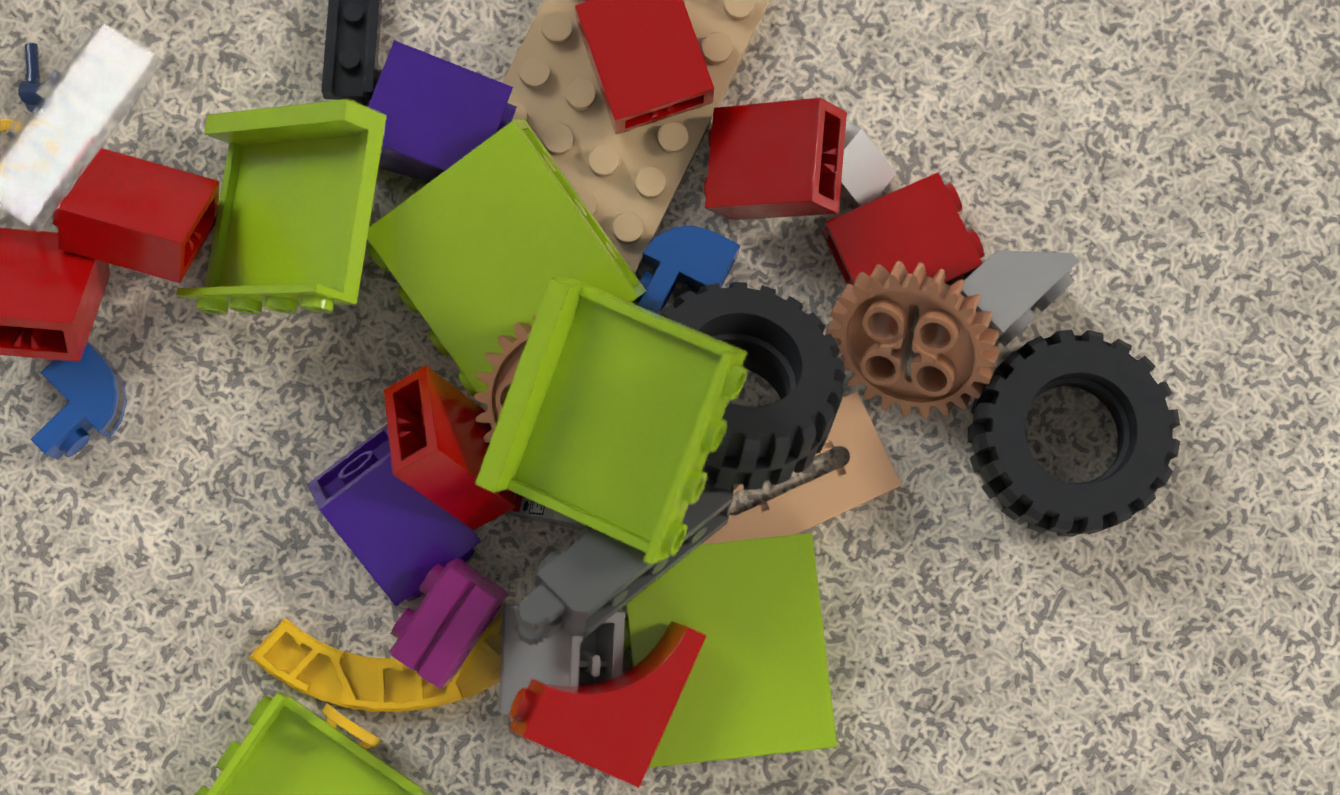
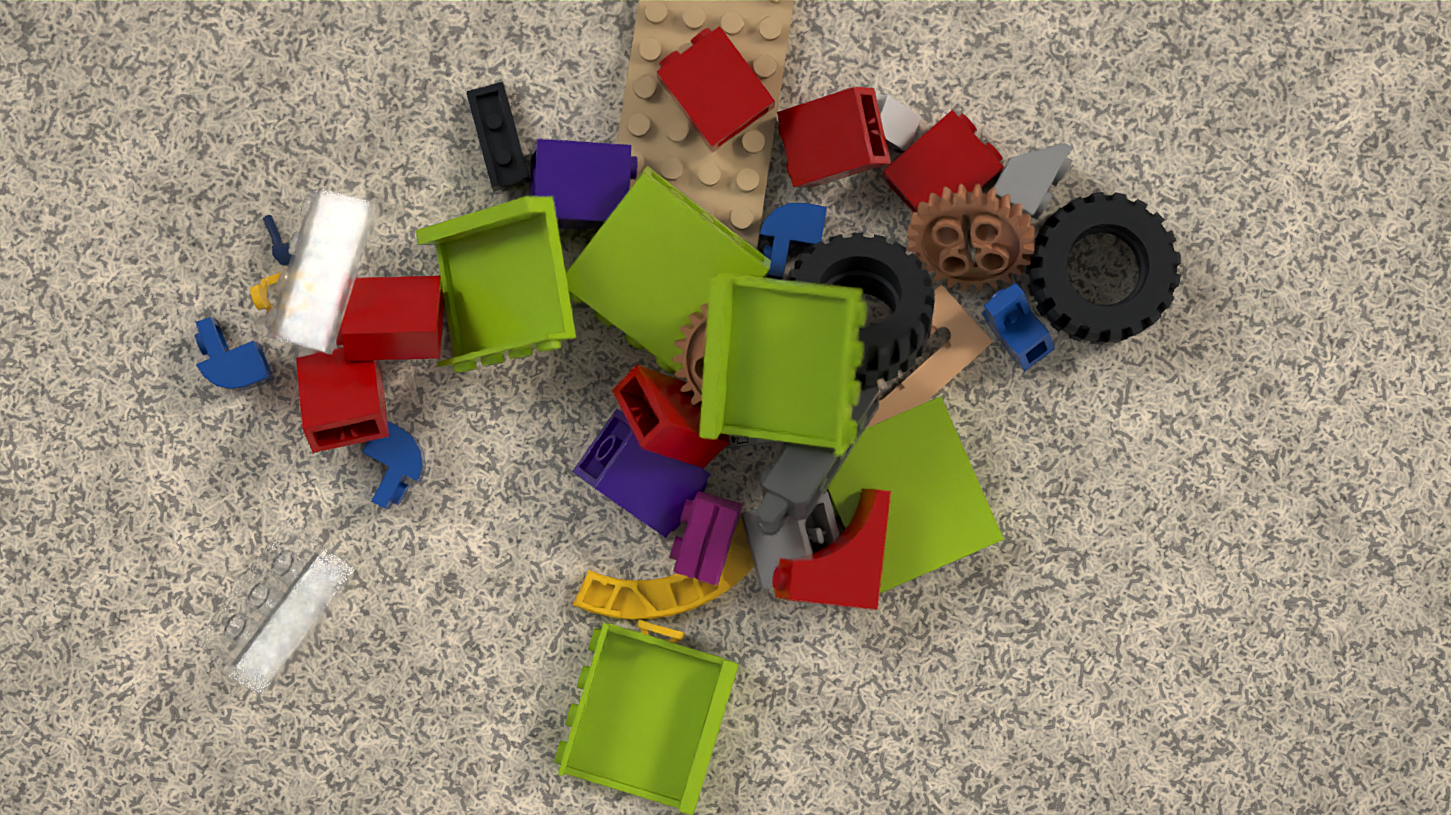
camera: 10 degrees left, 5 degrees up
(938, 475) = (1017, 327): none -> blue brick

